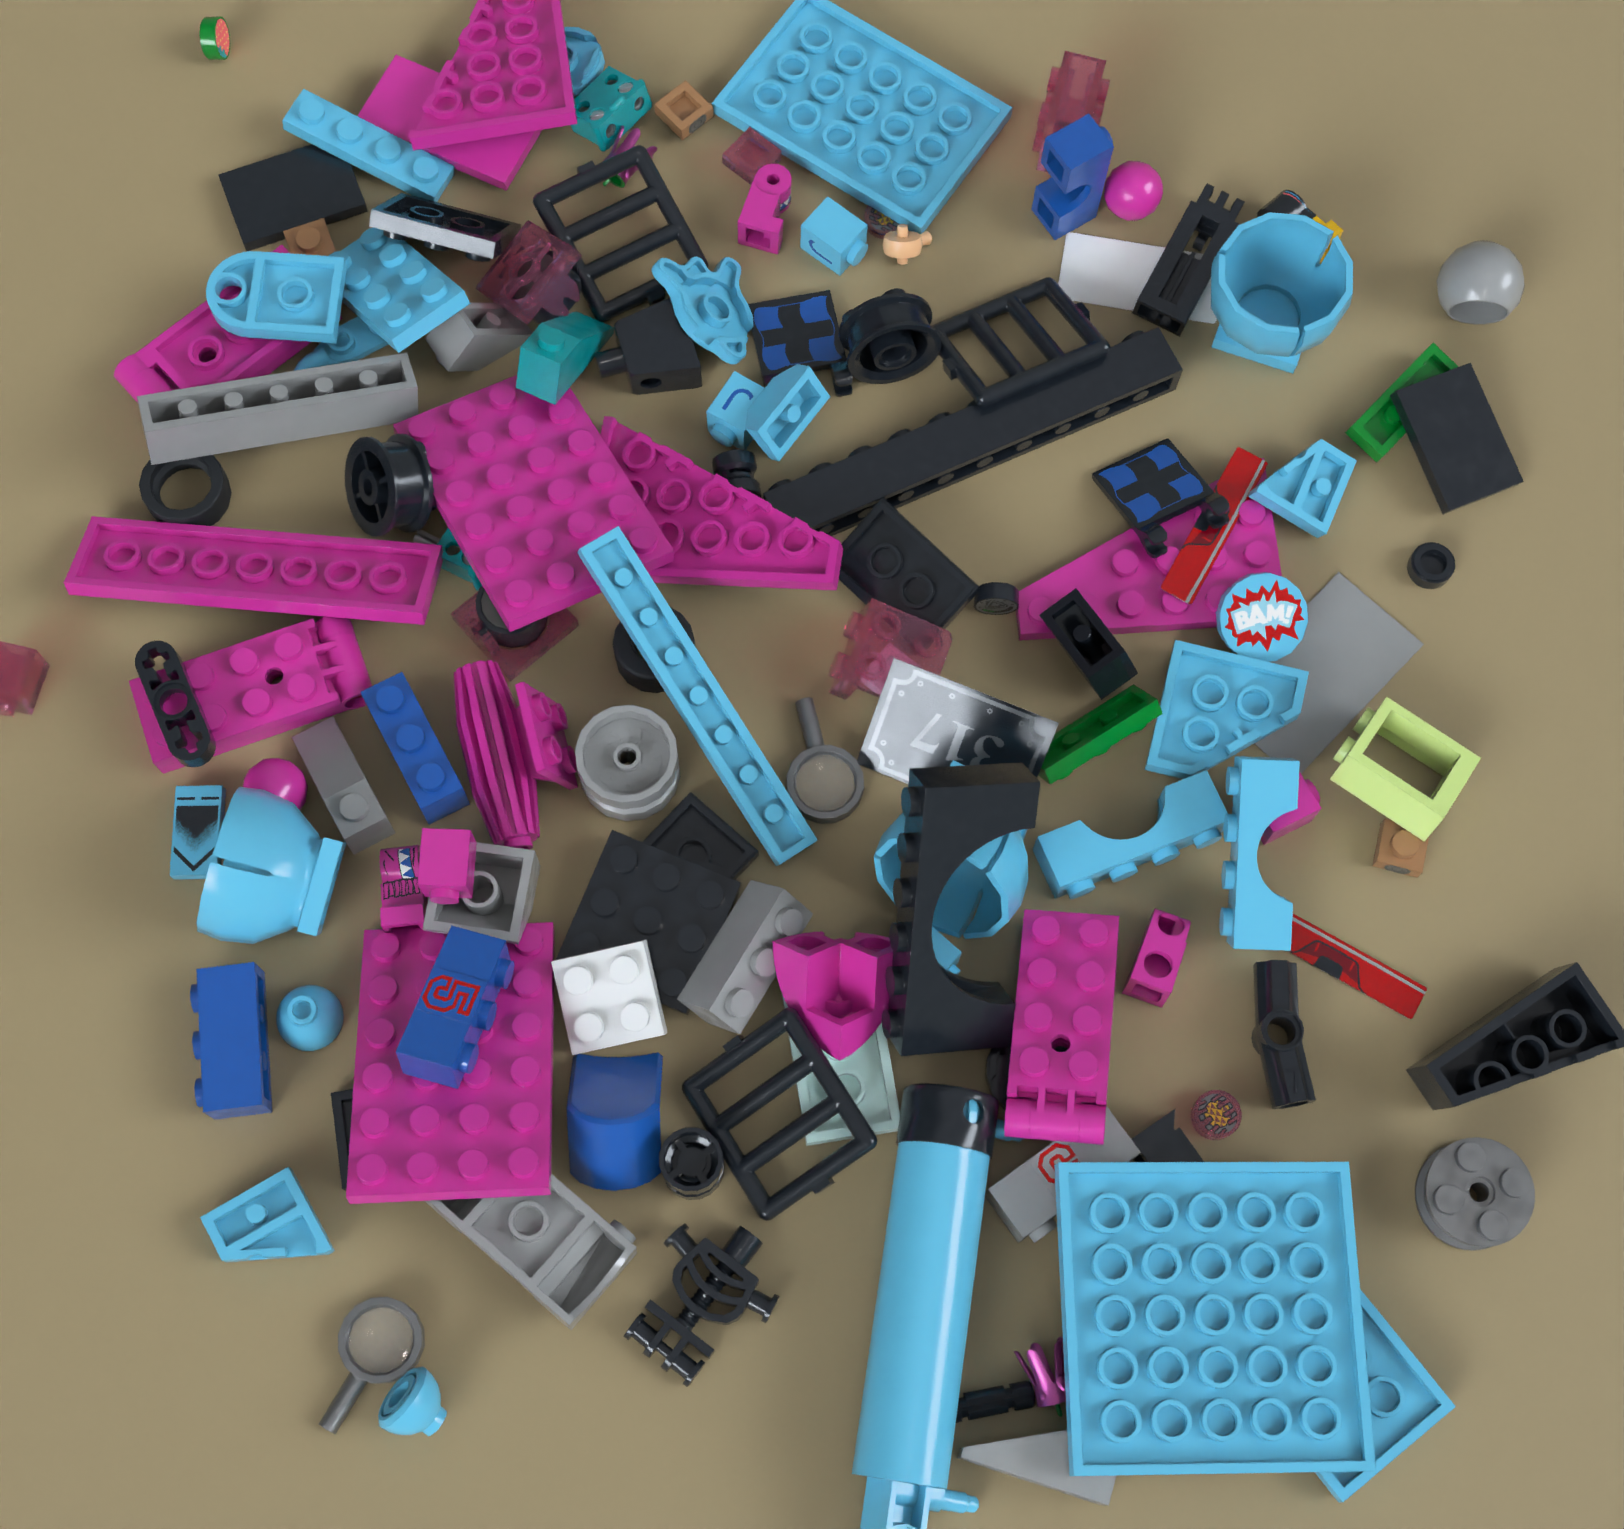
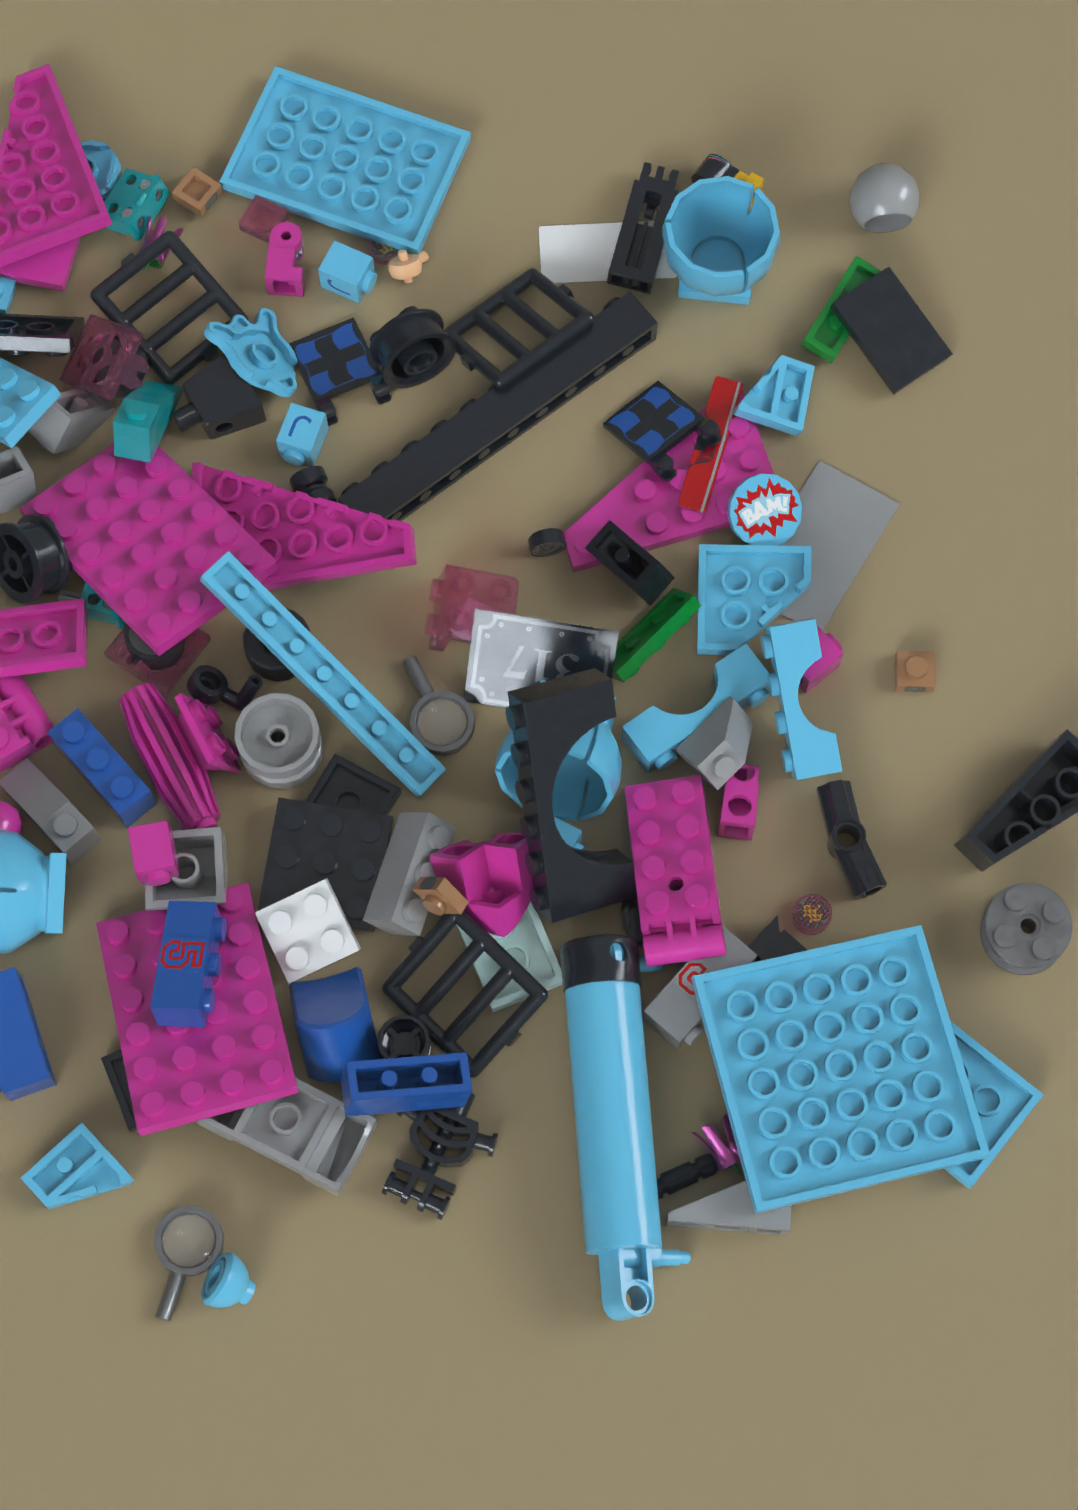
camera: 10 degrees left, 0 degrees up
(309, 1017) = (68, 1003): medium azure brick -> none
(400, 896) = (119, 882): dark pink leg -> none
(564, 679) = (211, 686): none -> black plate
(681, 1214) = (406, 1084): none -> blue brick
(774, 993) = (439, 896): none -> medium nougat plate
(785, 409) = (340, 425): medium azure slope -> none
(903, 568) = (466, 535): black tile -> none
(1071, 93) = (520, 129): clear pink brick -> none
(1078, 169) = (535, 173): blue arch -> none
(1133, 190) = (585, 181): dark pink piece -> none
(1148, 884) = (719, 744): none -> light grey slope
(1355, 968) = (897, 774): red sticker -> none
(1387, 791) = (895, 629): yellowish green window -> none
(1431, 565) = (892, 438): black tile -> none

